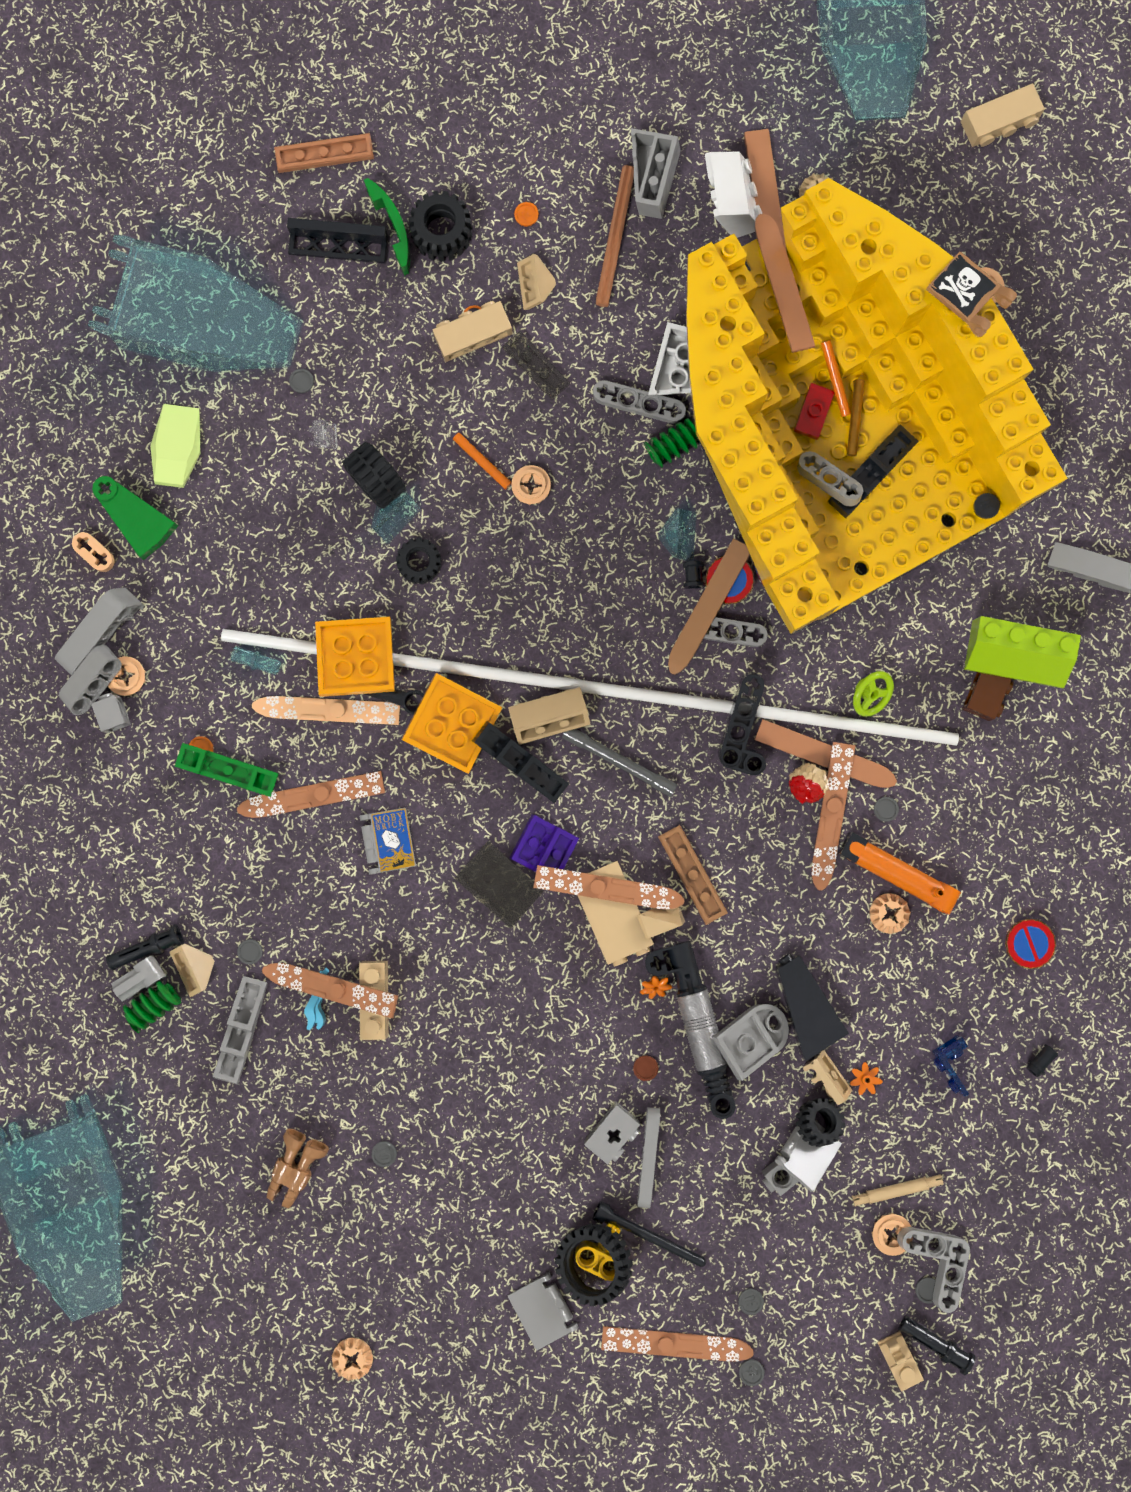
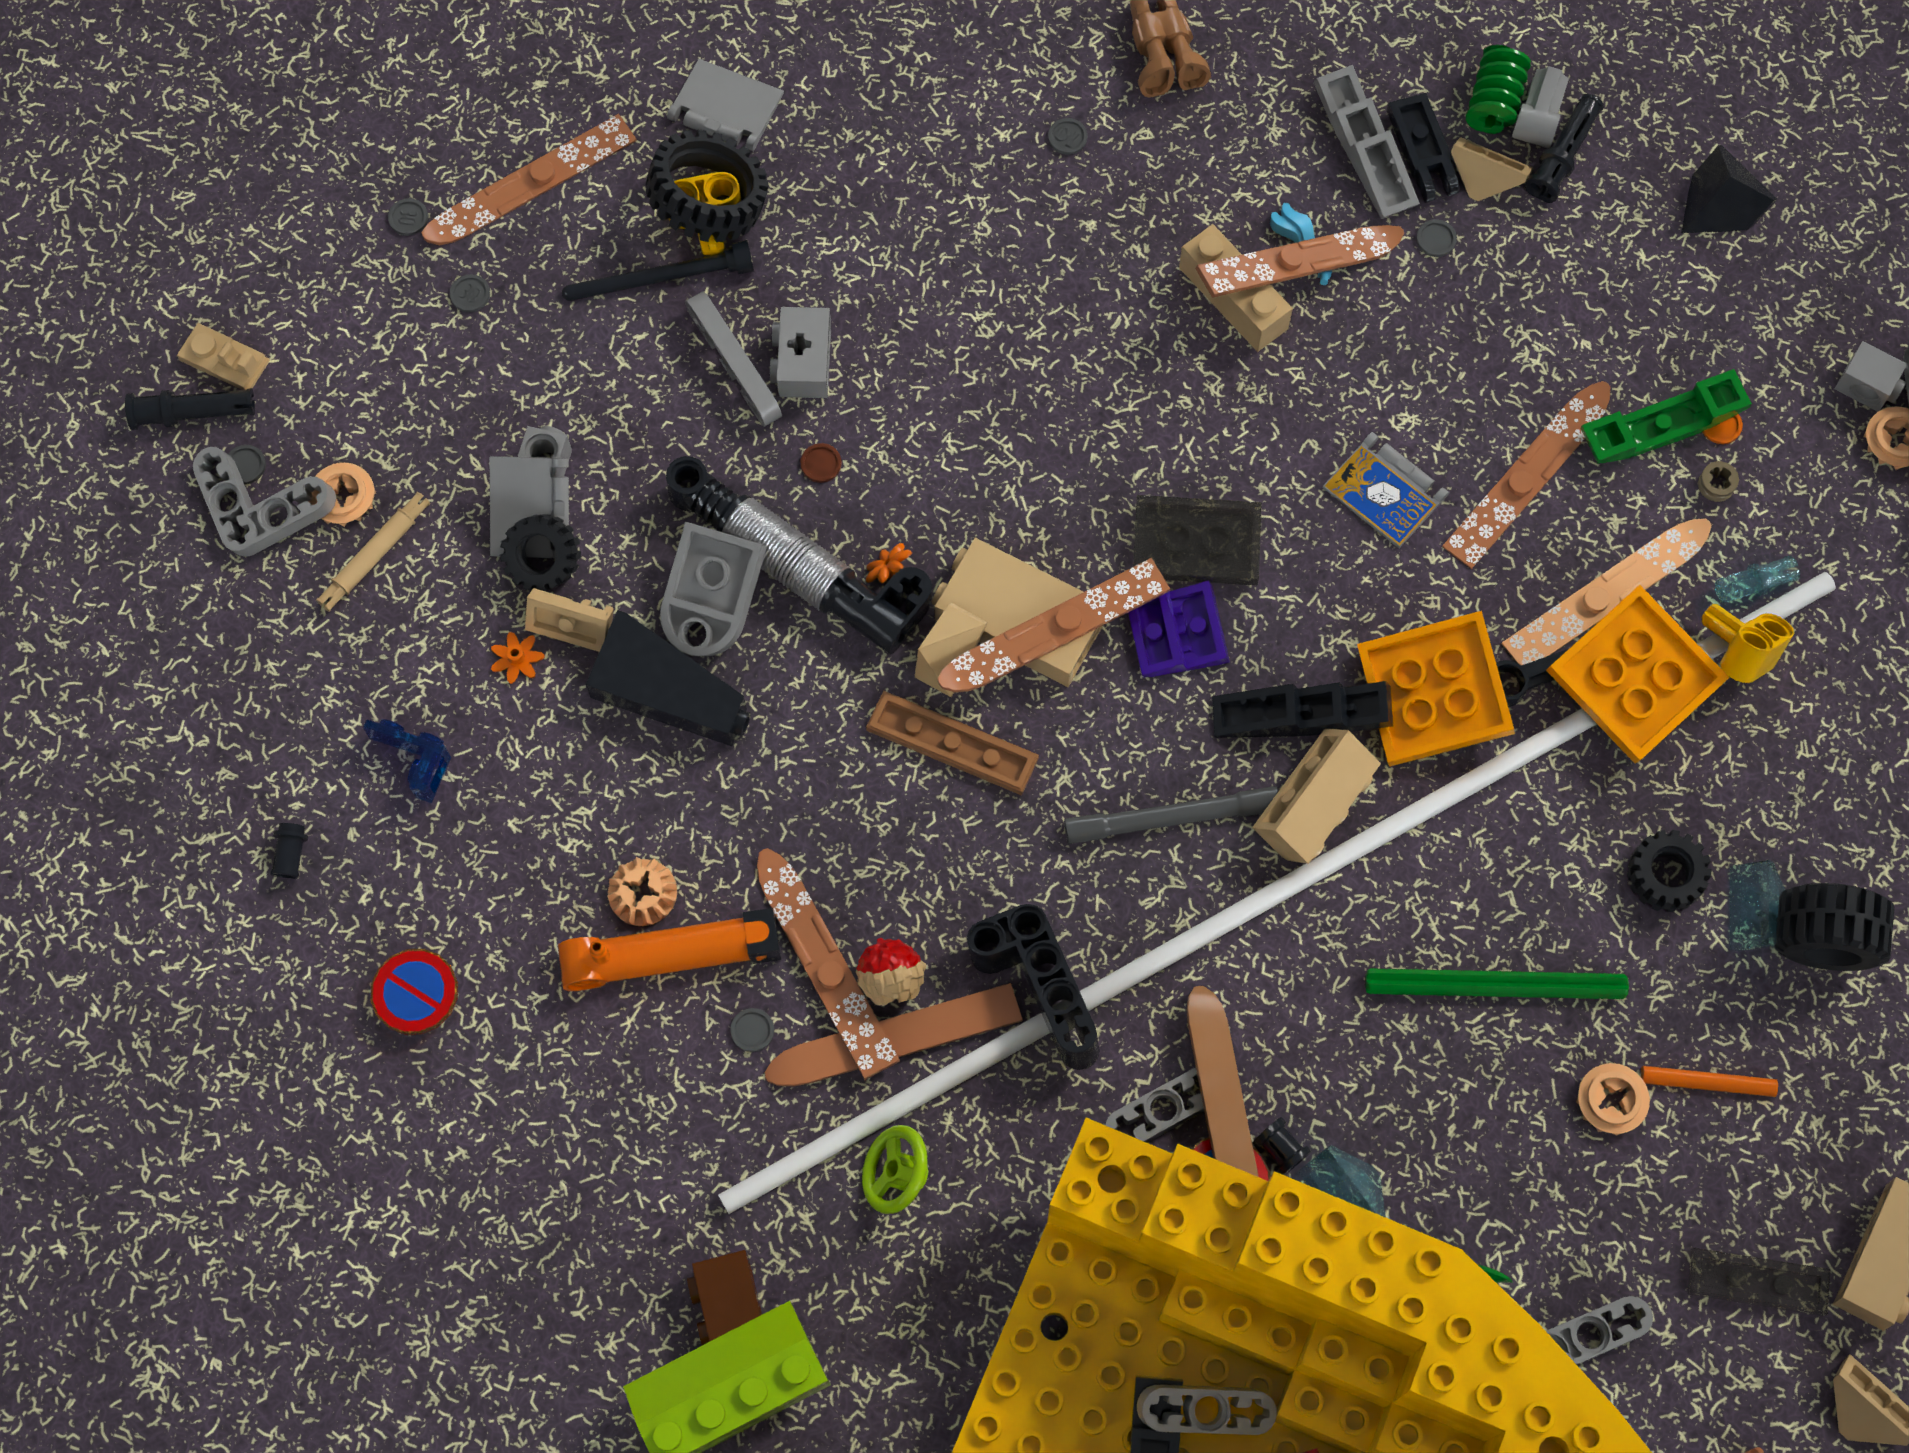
camera: 140 degrees right, 15 degrees down
(92, 861) = (1724, 196): none -> black slope
(213, 1007) = (1423, 144): none -> black hinge
(223, 716) = (1718, 494): none -> dark tan bush
(290, 628) = (1752, 645): none -> yellow beam
(538, 572) = (1496, 983): none -> green axle

